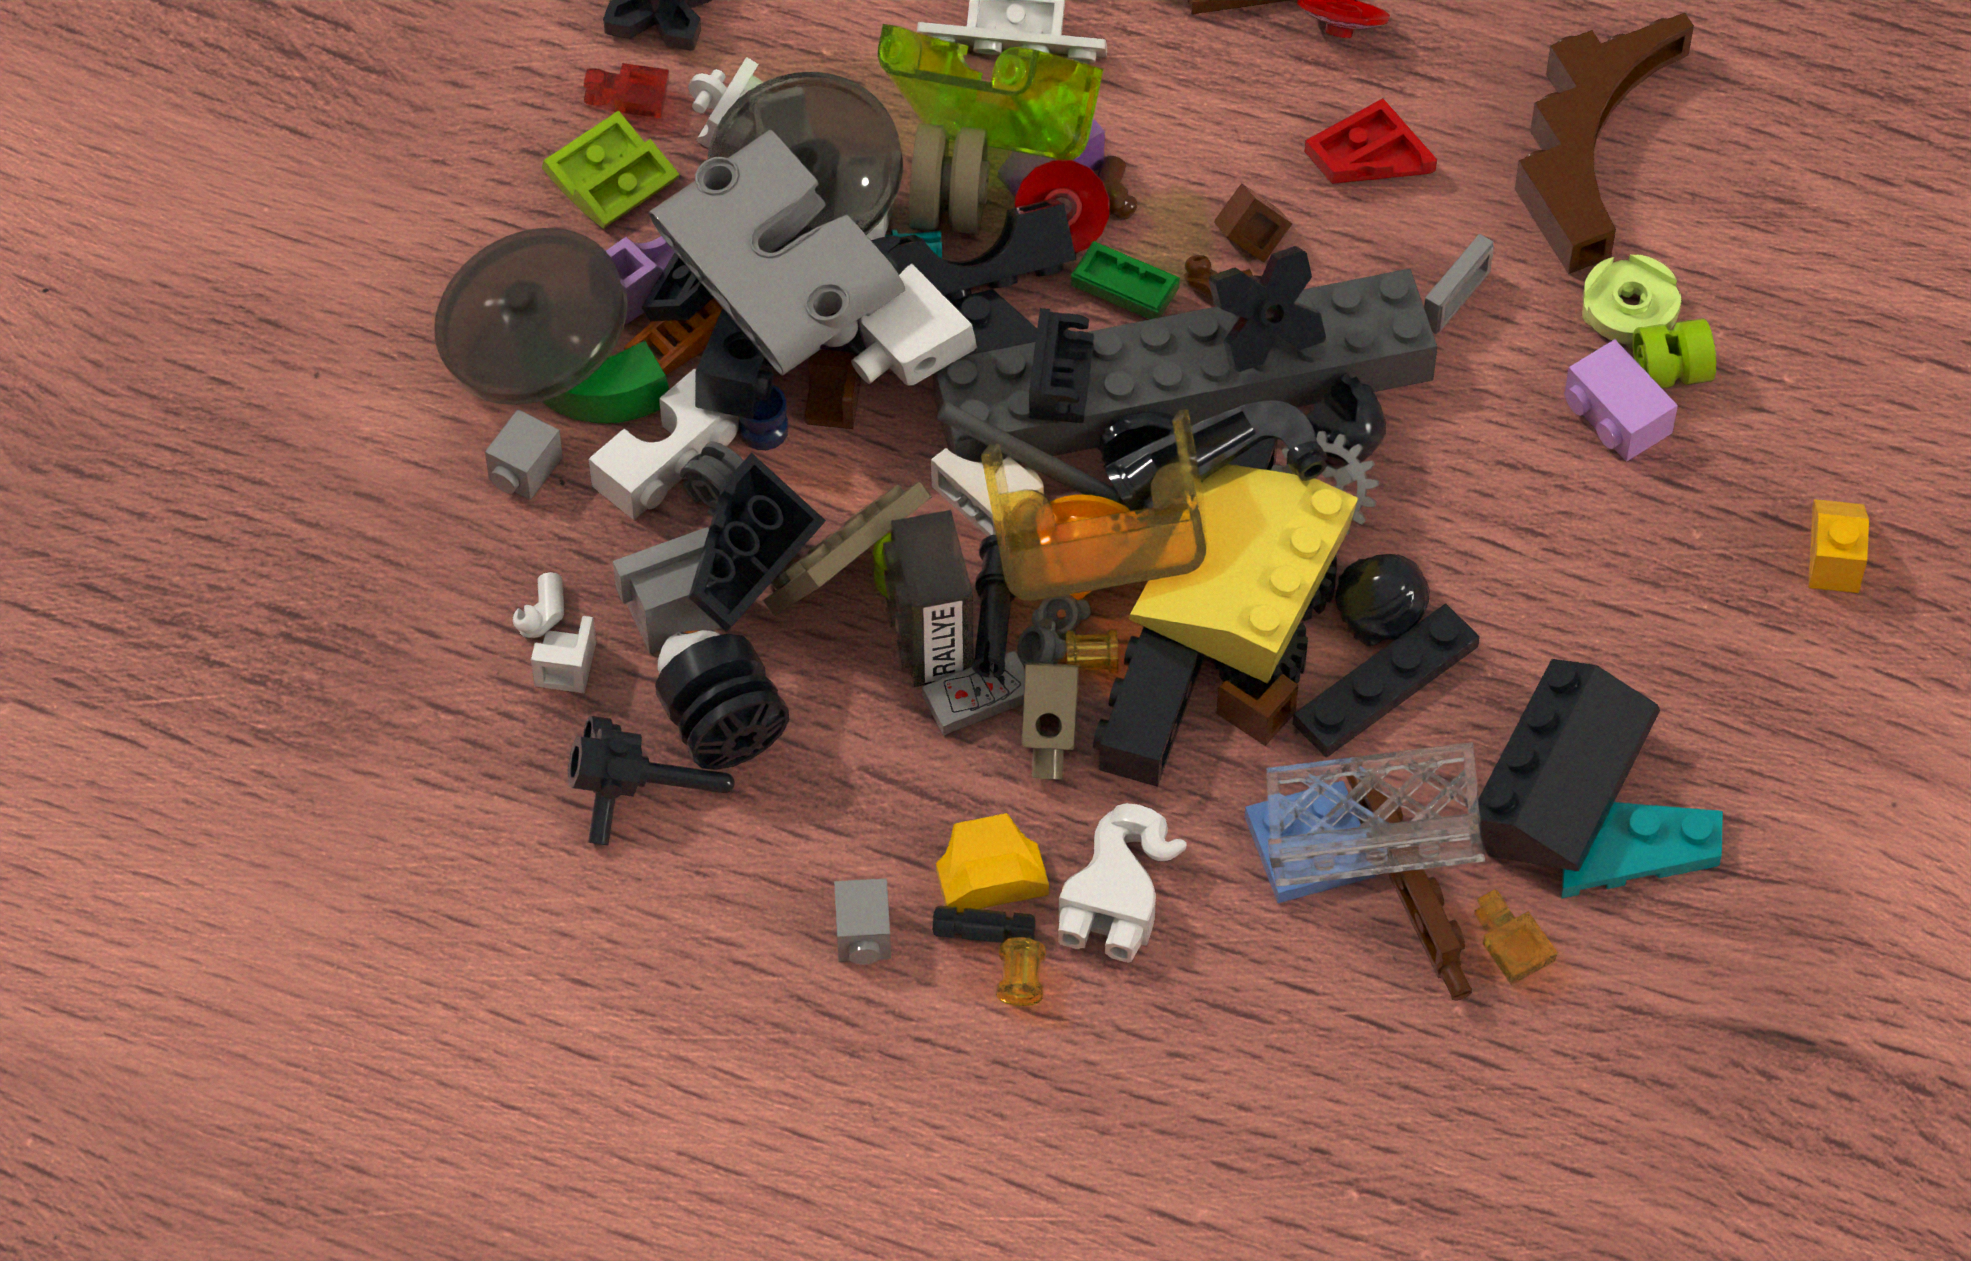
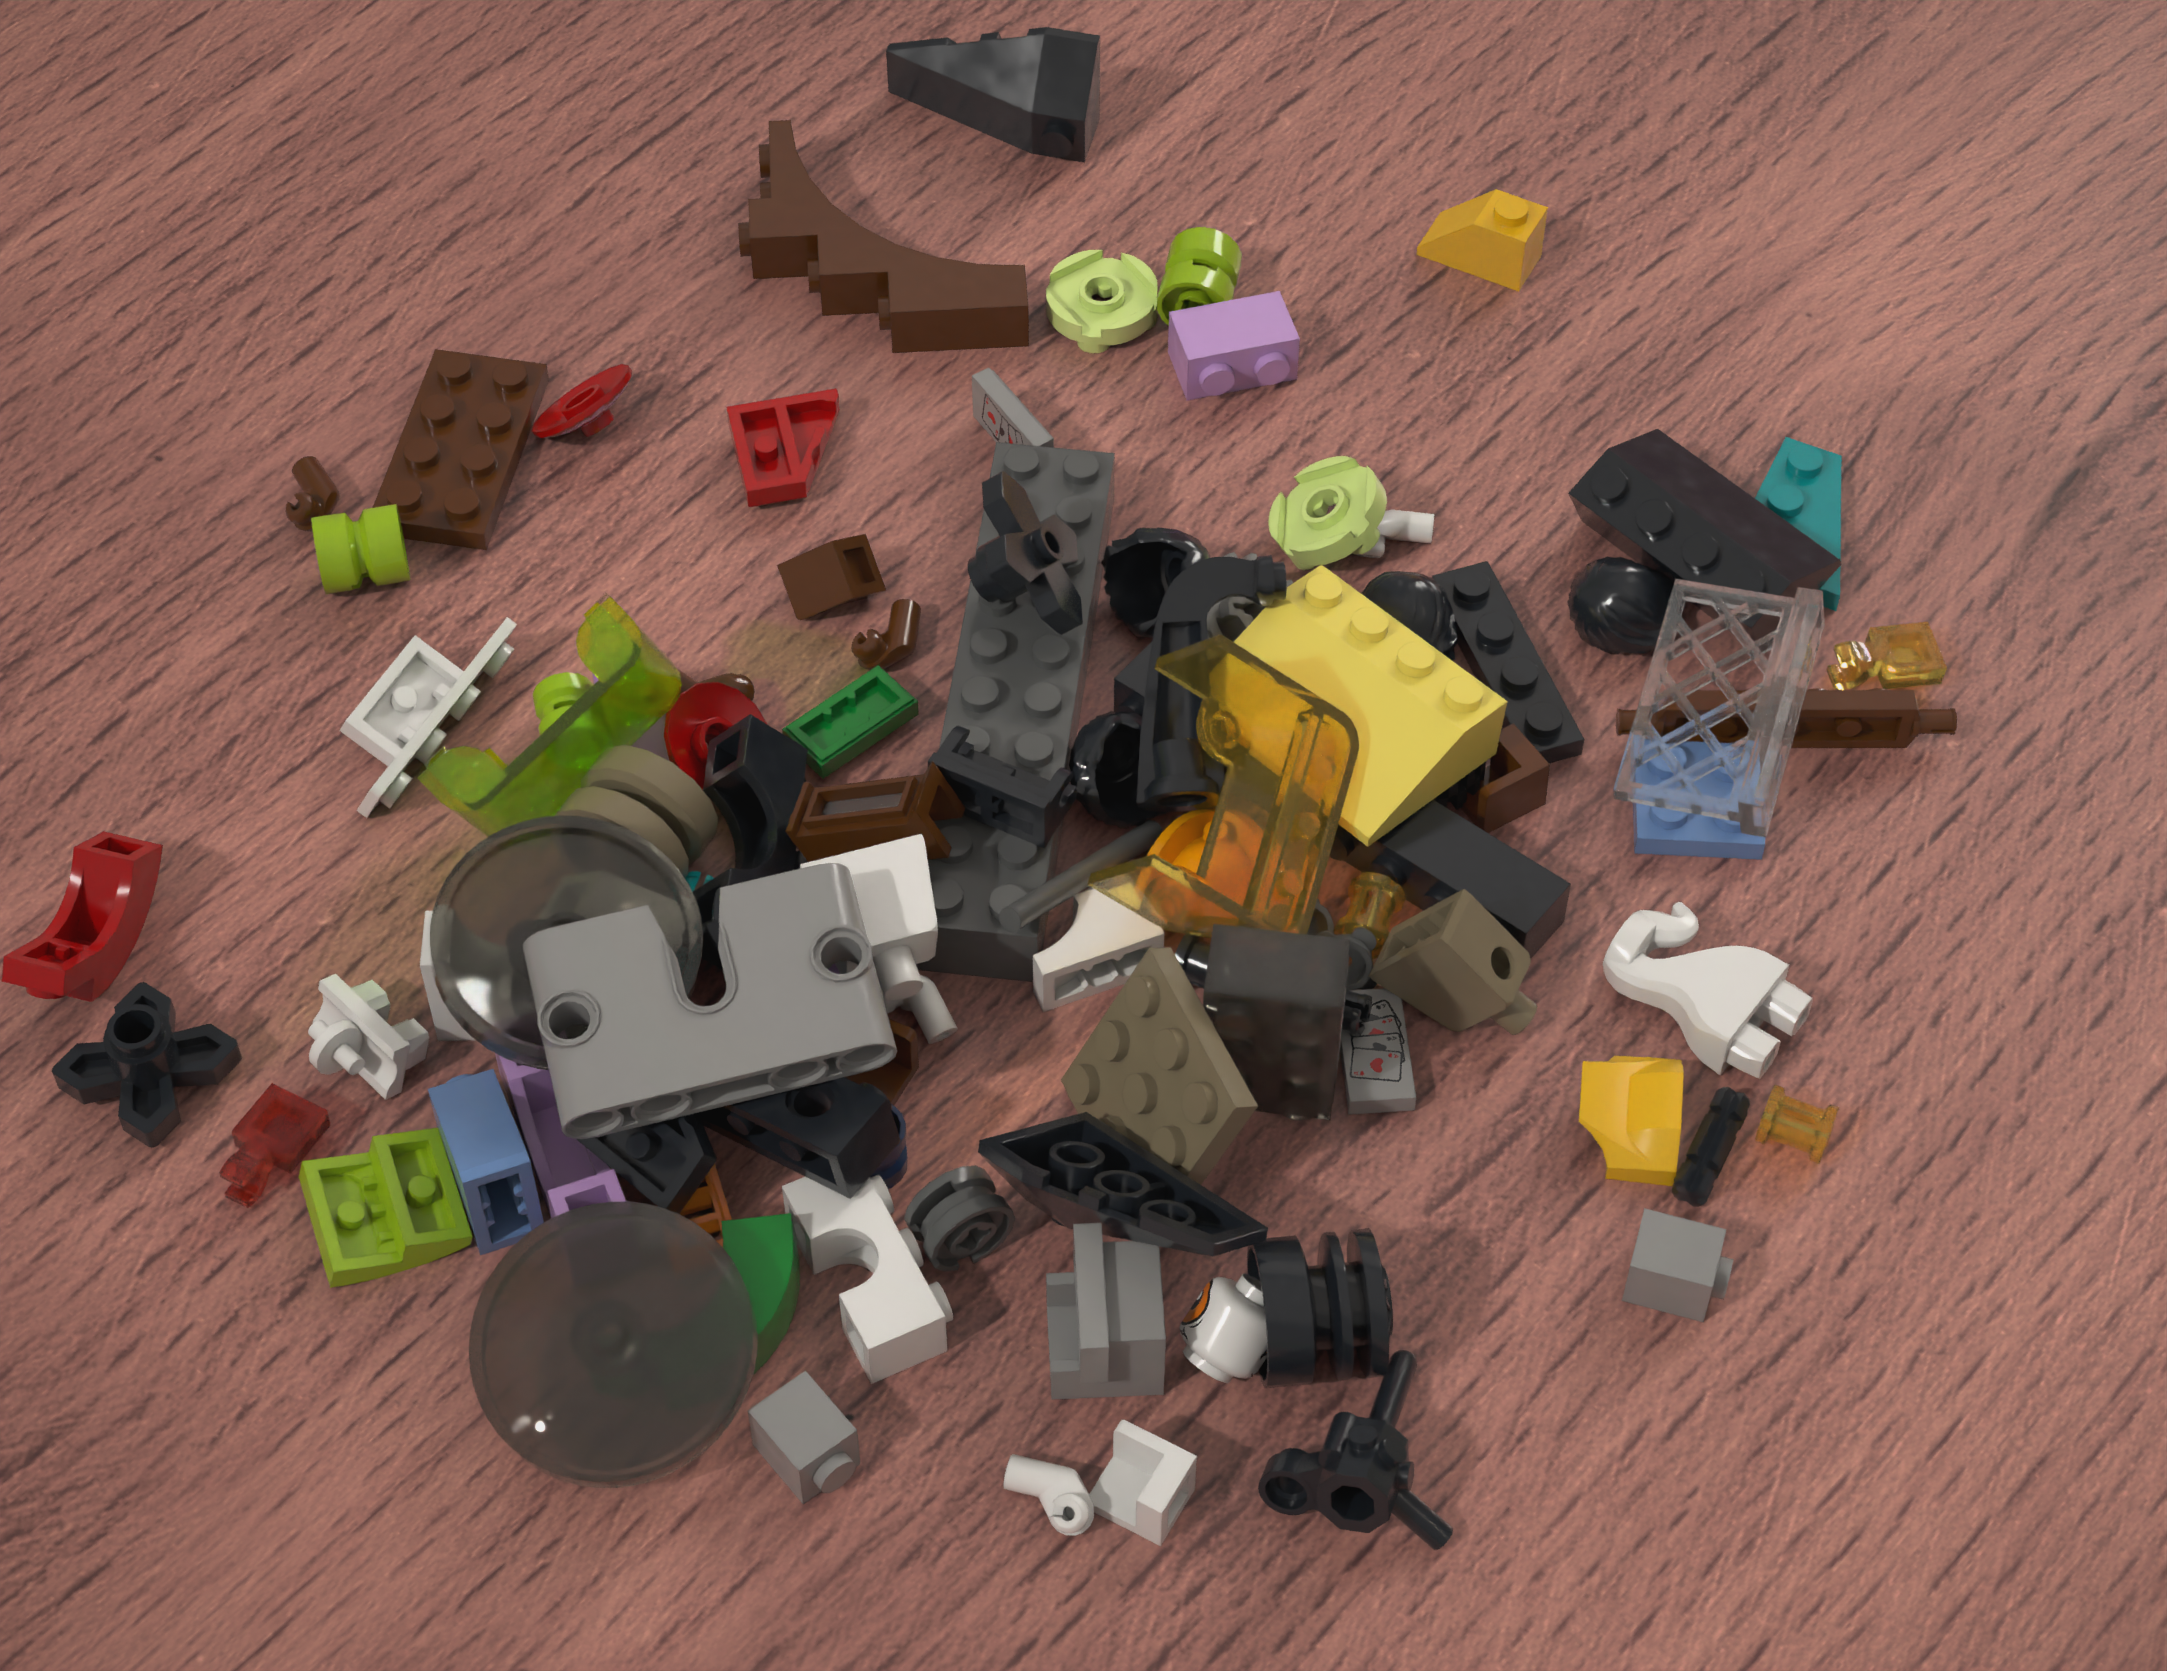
camera: 70 degrees left, 5 degrees down
(634, 191) = (487, 1159): none -> medium blue slope
(896, 407) = (928, 1010): none -> white arm
(1002, 298) = (872, 813): none -> reddish brown window
(1466, 512) = (1301, 520): none -> yellowish green plate
(1474, 719) = (1619, 605): none -> black hair
(1489, 562) = (1403, 527): none -> white arm
(1824, 169) = (1020, 90): none -> black wedge

